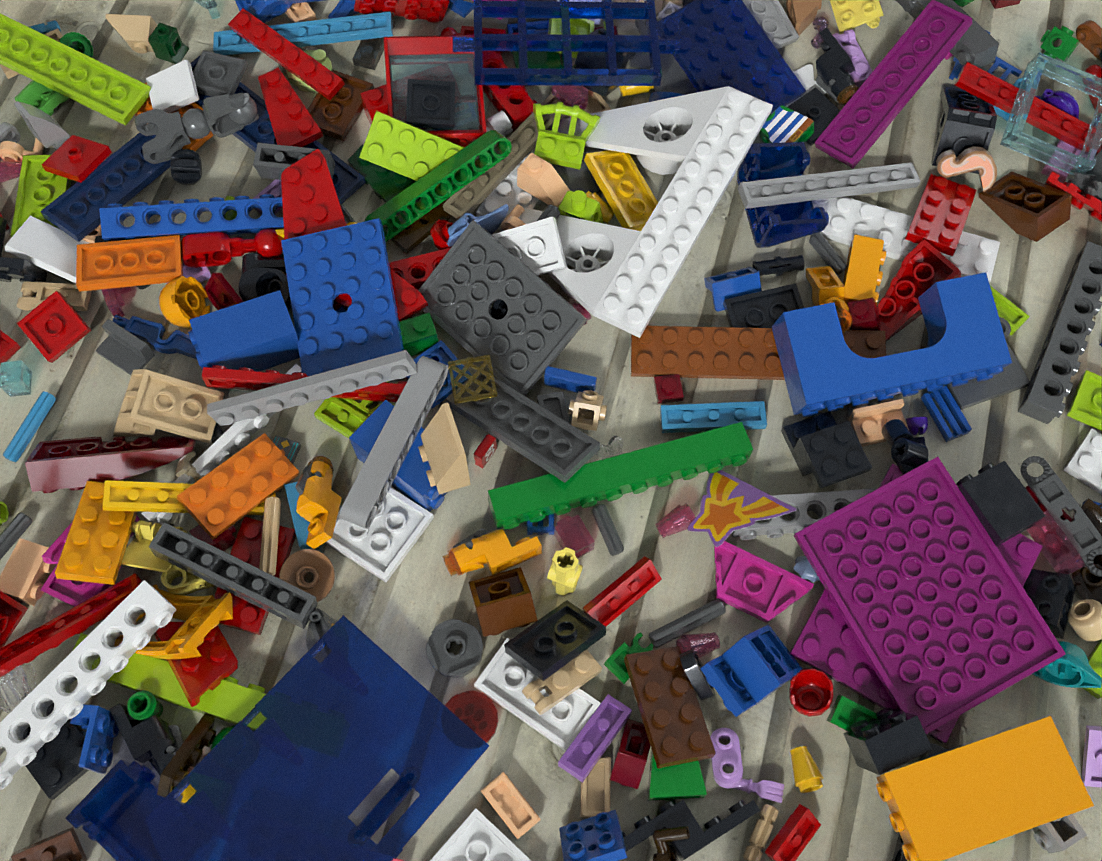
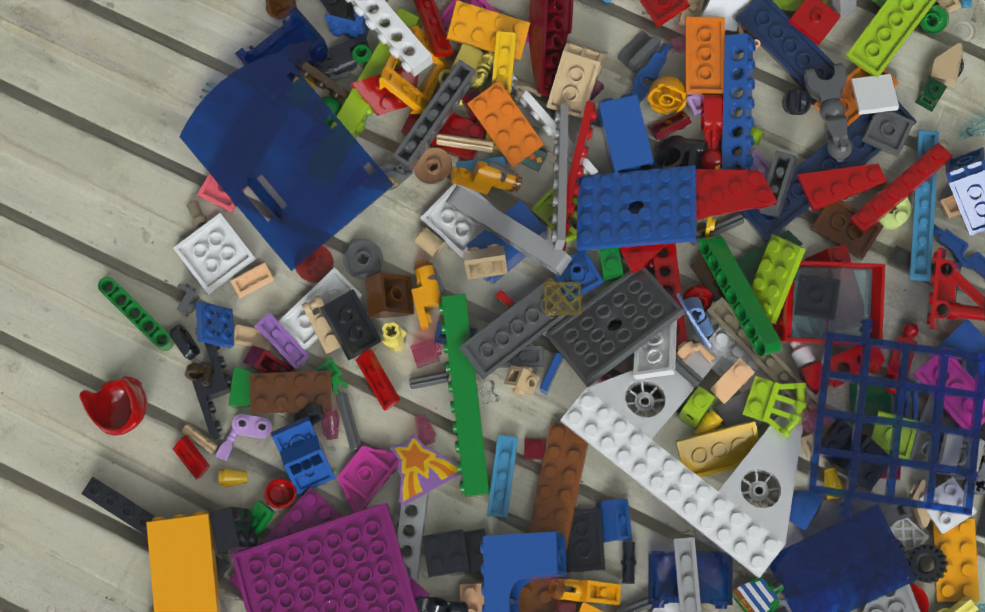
camera: 110 degrees right, 10 degrees up
(417, 562) = (429, 242): none -> tan brick

